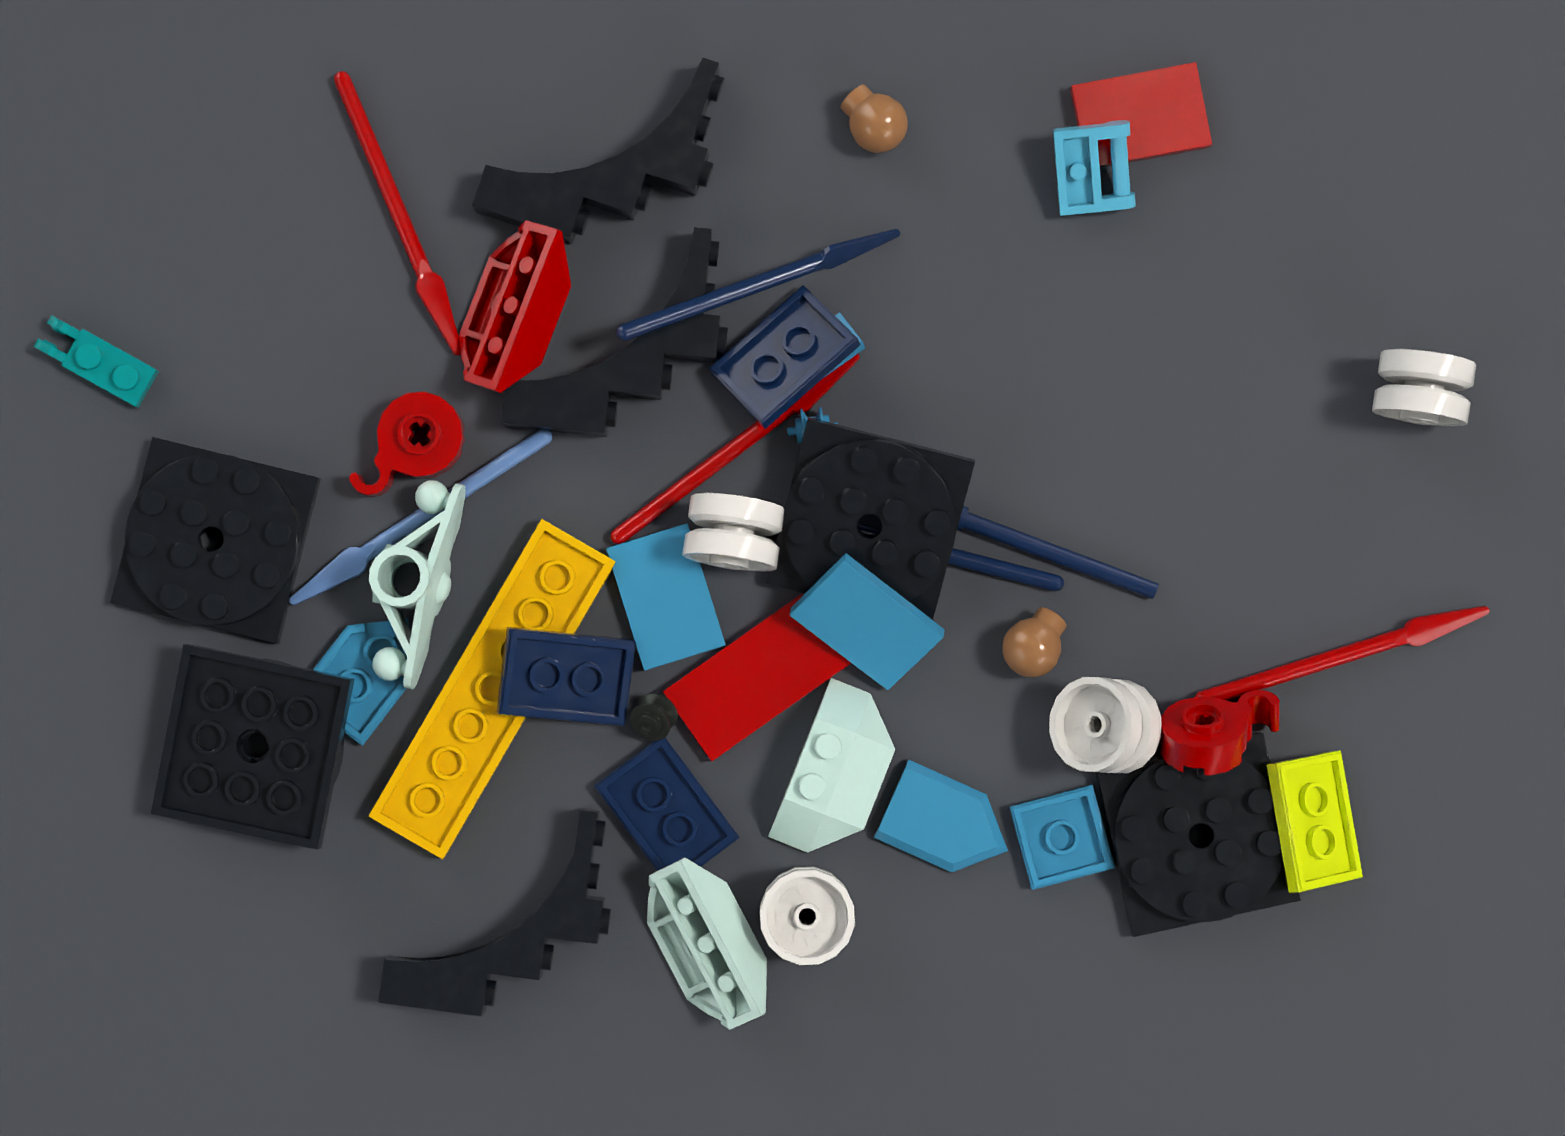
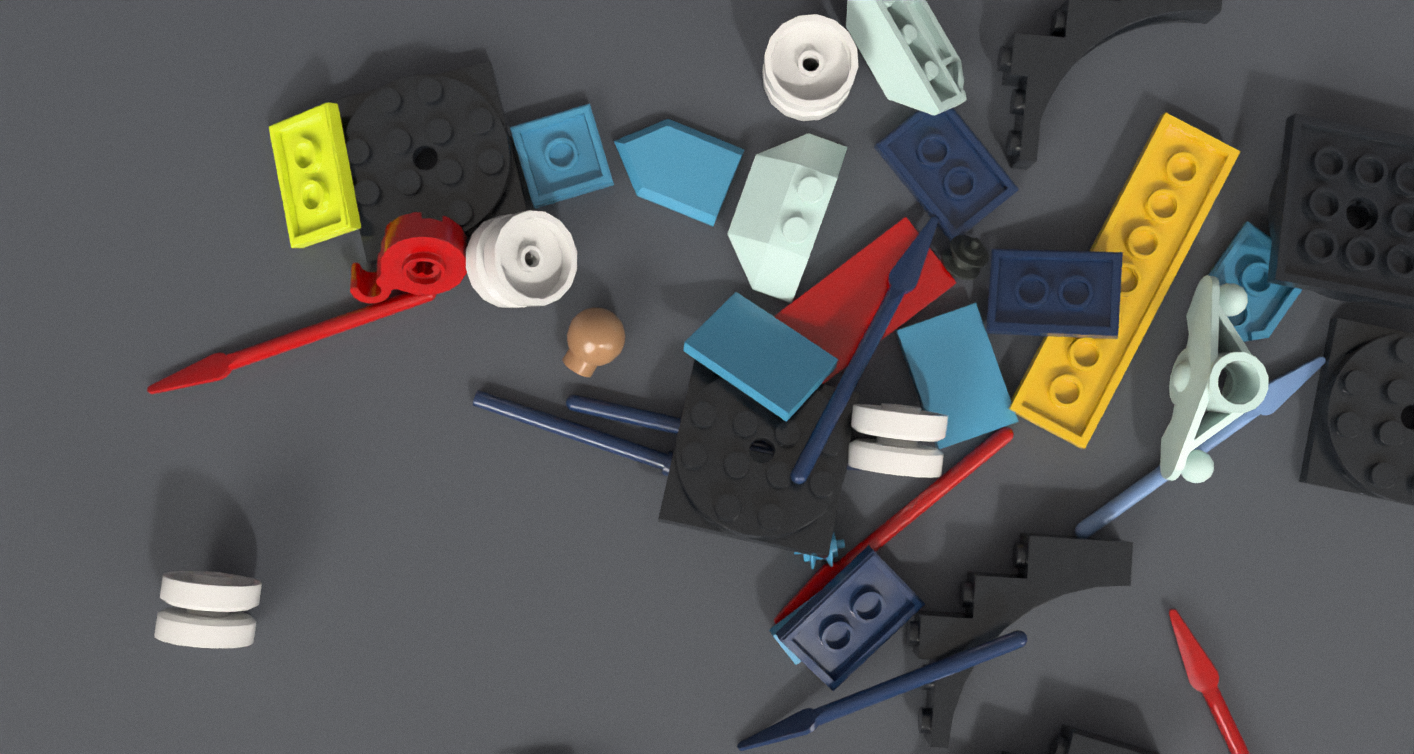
camera: 165 degrees left, 0 degrees up
(395, 446) = (1230, 515): red piece -> none
(515, 307) = (1120, 658): red wedge -> none
(719, 694) = (902, 280): none -> dark blue piece

